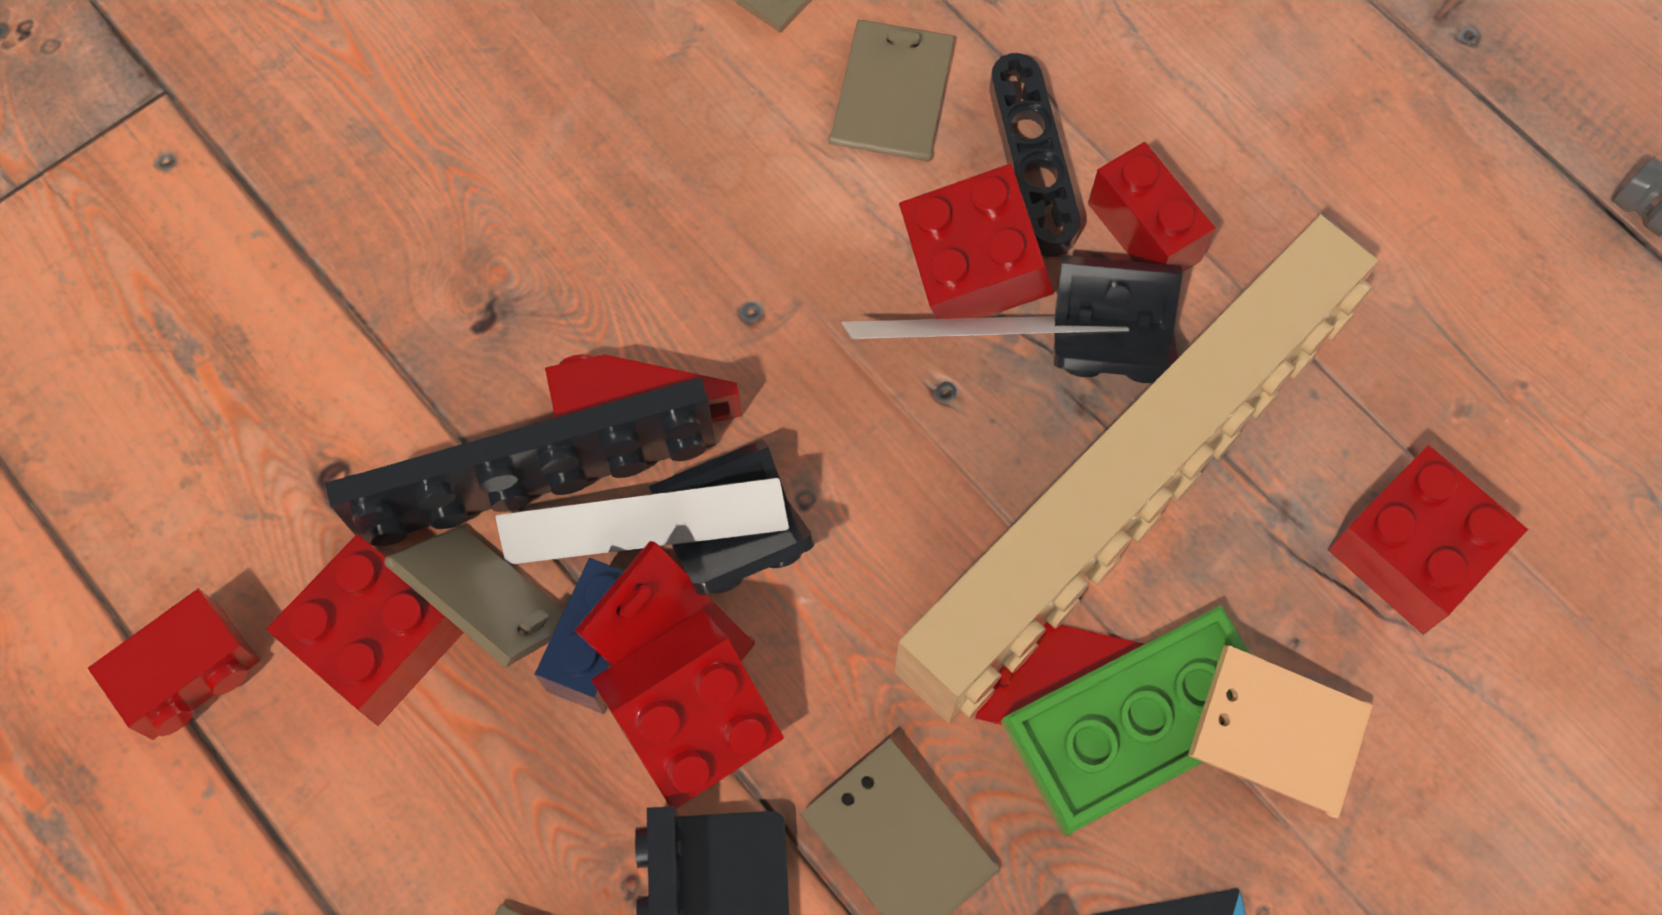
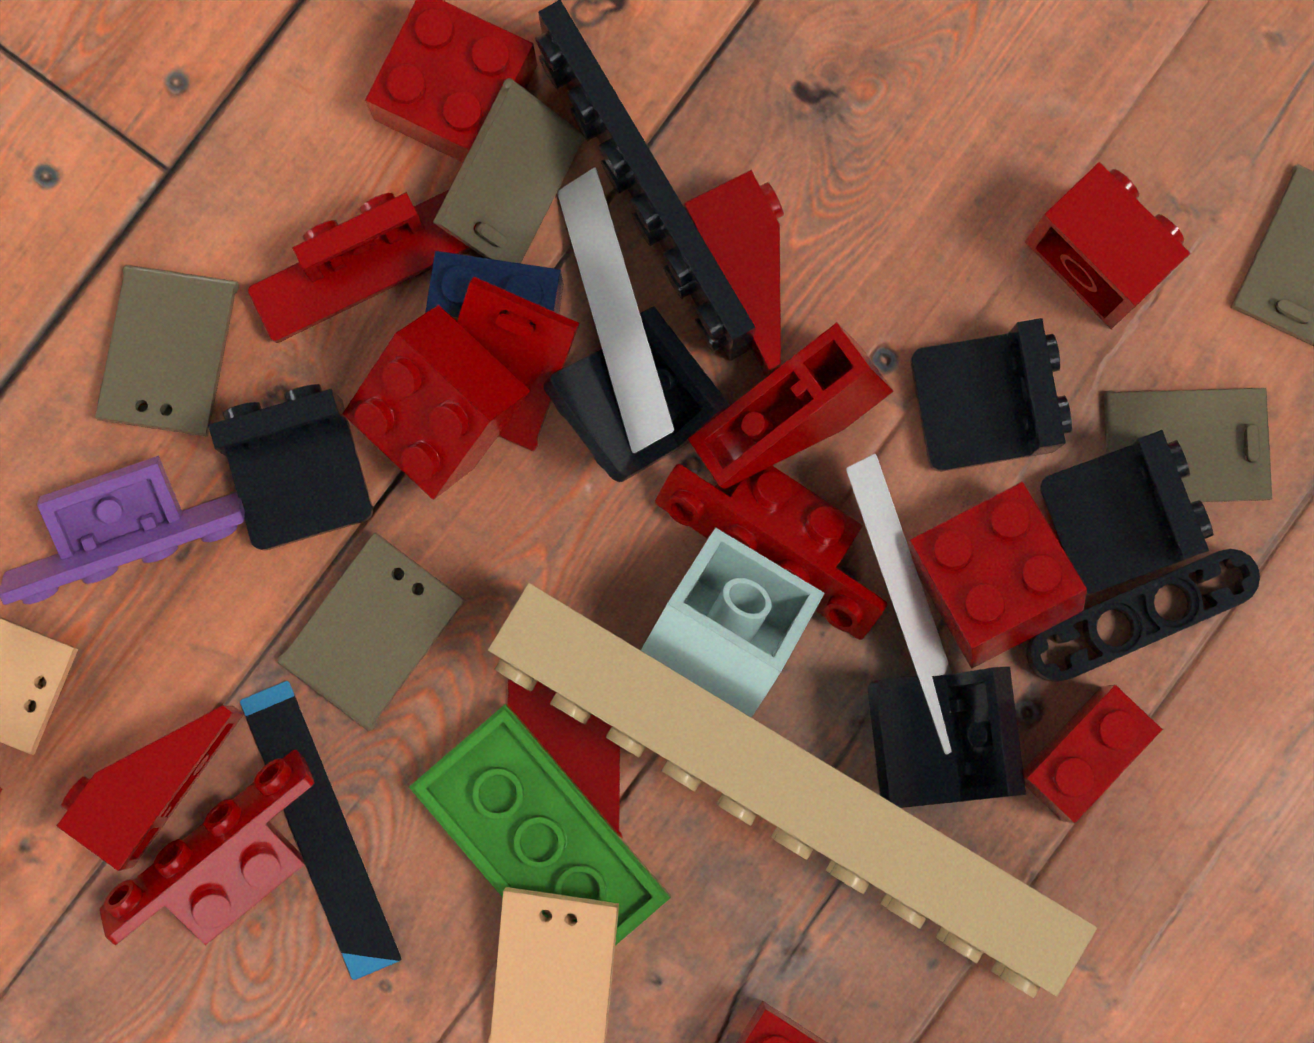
camera: 80 degrees right, 15 degrees up
(518, 769) = (352, 263): none -> red bracket
(705, 93) = (1107, 244): none -> red brick
(779, 386) = (792, 408): none -> red slope
(812, 220) = (991, 398): none -> black bracket
(895, 430) = (785, 526): none -> red bracket
(939, 126) = (1126, 512): none -> black bracket
(971, 475) = (733, 622): none -> light aqua brick

